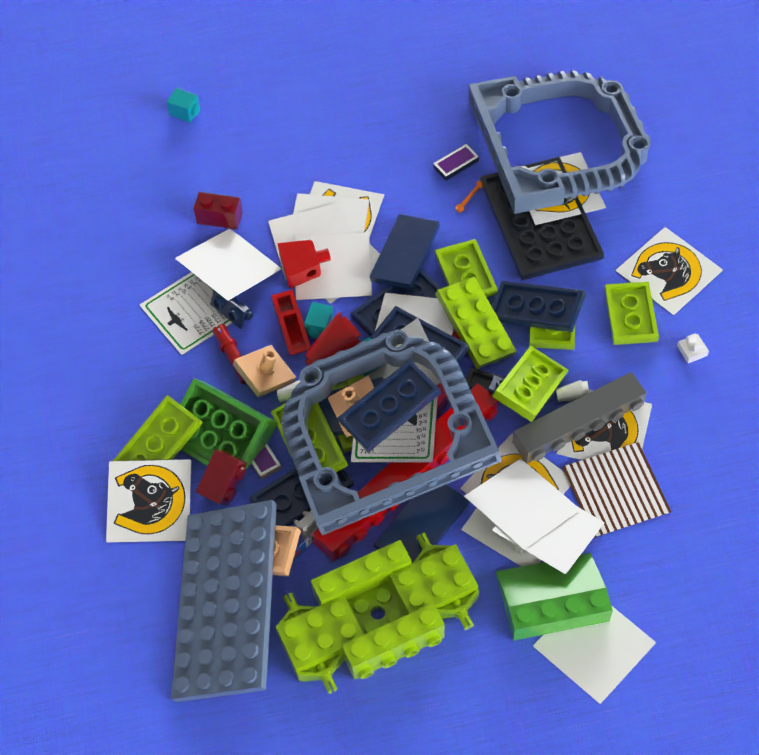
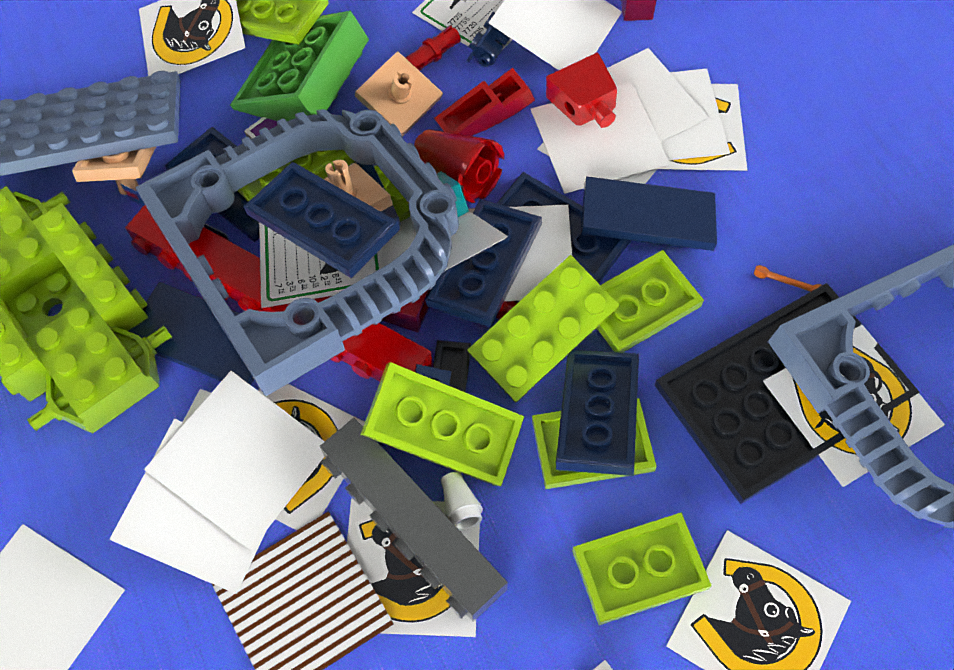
camera: 75 degrees right, 5 degrees up
(222, 477) = (224, 83): dark red brick -> none
(318, 319) = (500, 129): teal brick -> none
(456, 162) = (846, 248): tile -> none
(548, 601) = (68, 527): bright green slope -> none

